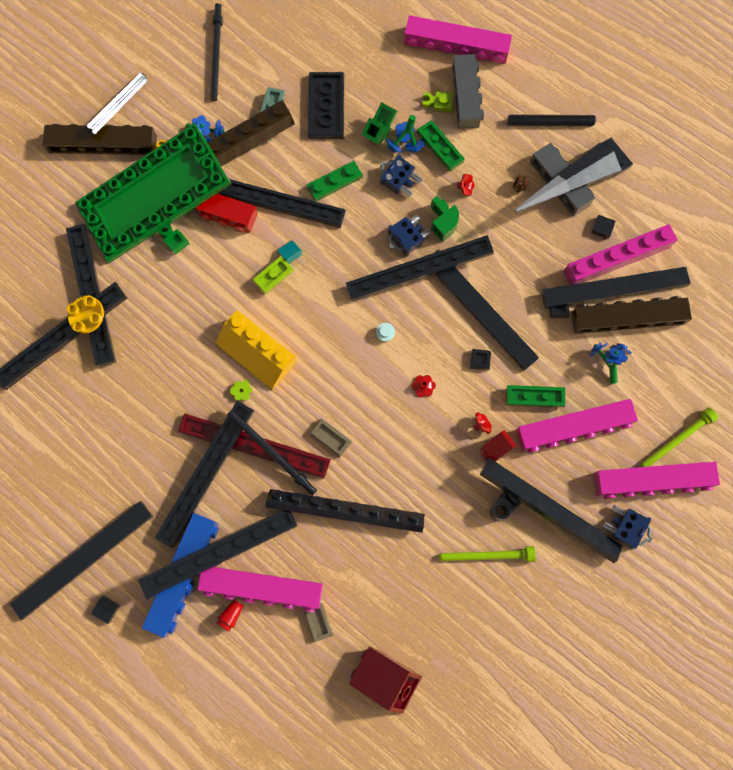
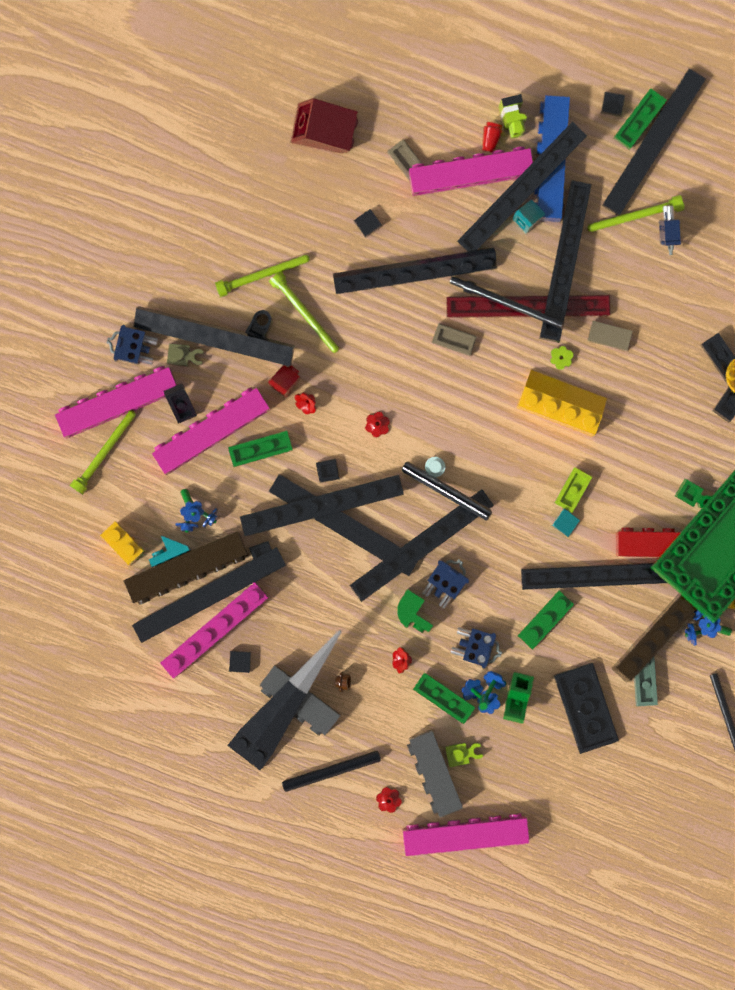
camera: 160 degrees right, 10 degrees up
(85, 585) = (640, 118): none -> green plate
(86, 493) = (676, 201): none -> lime piece
(99, 469) = (669, 229): none -> dark blue piece
(191, 395) = (609, 336): none -> dark tan tile
(203, 628) = (510, 115): none -> lime hips
(222, 524) = (528, 216): none -> teal slope
(374, 571) = (367, 223): none -> black tile
(383, 307) = (447, 491): none -> black axle
(473, 541) = (280, 283): none -> lime piece
(496, 329) = (321, 505): none -> black plate
(510, 87) = (386, 794): none -> red plant
(583, 504) = (180, 355): none -> olive plate
(599, 458) = (180, 403): none -> black plate
(640, 333) = (173, 548): none -> teal slope
(682, 352) = (122, 543): none -> yellow brick

